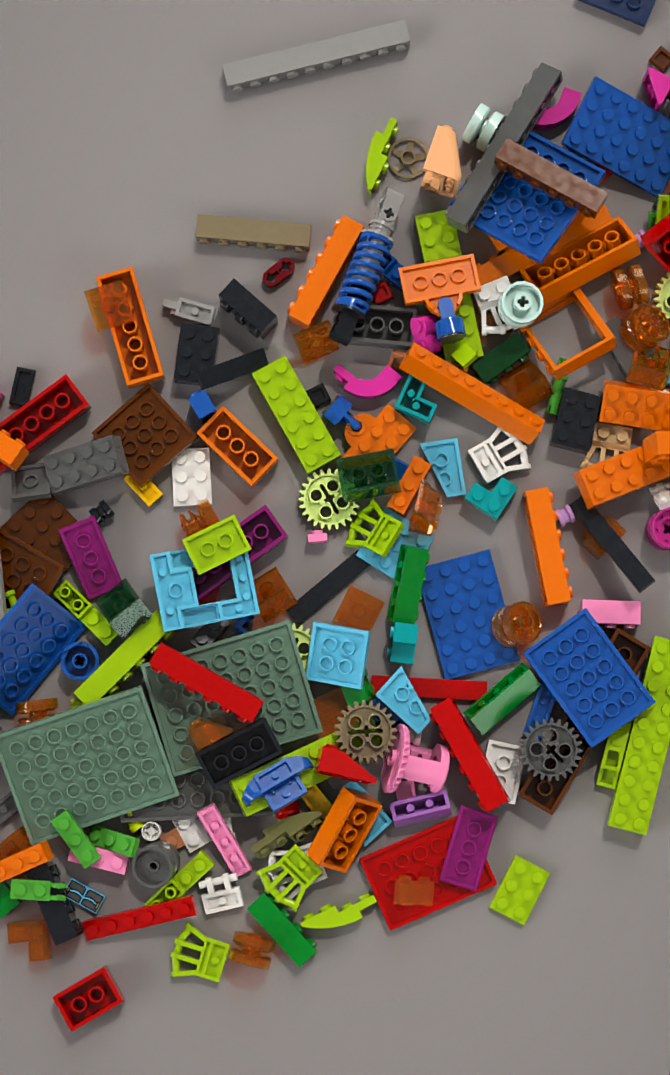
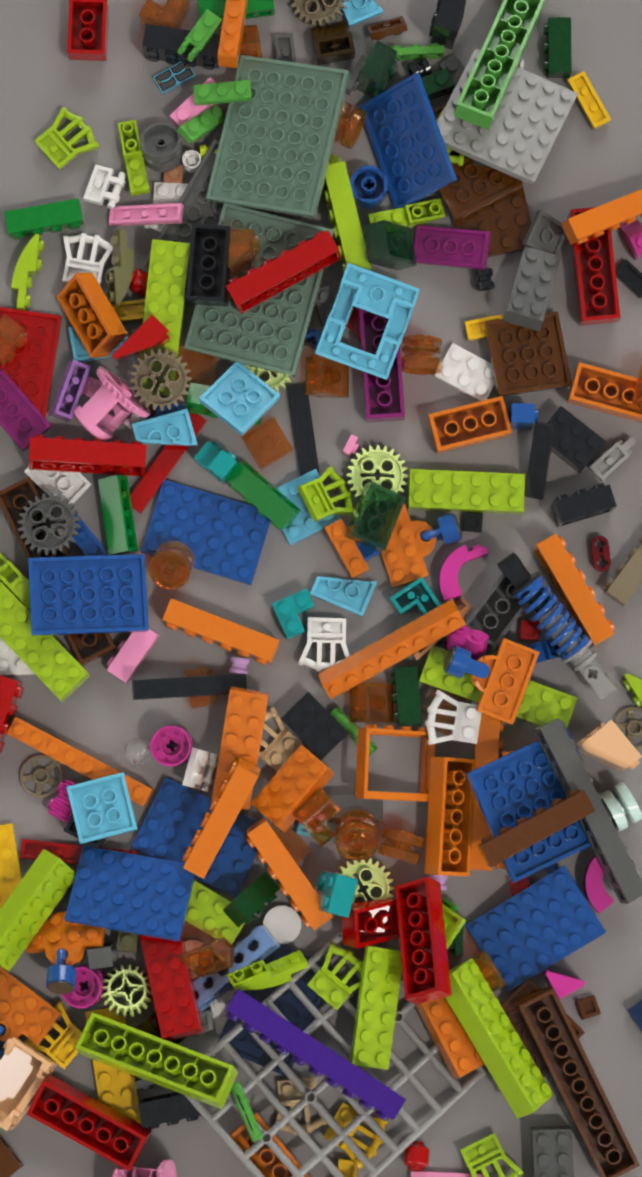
camera: 115 degrees right, 0 degrees up
(140, 917) = (126, 108): red plate -> none
(216, 544) = (394, 349): lime plate -> none
(252, 946) = (42, 181): clear orange wheel -> none
(279, 783) = (162, 280): plate -> none
(300, 867) = (82, 260): lime plate -> none
(315, 342) = (521, 542): clear orange plate -> none
(425, 510) = (316, 548): clear orange slope -> none
(464, 356) = (427, 661): lime tile -> none
(528, 296) = (442, 747): light aqua wheel -> none

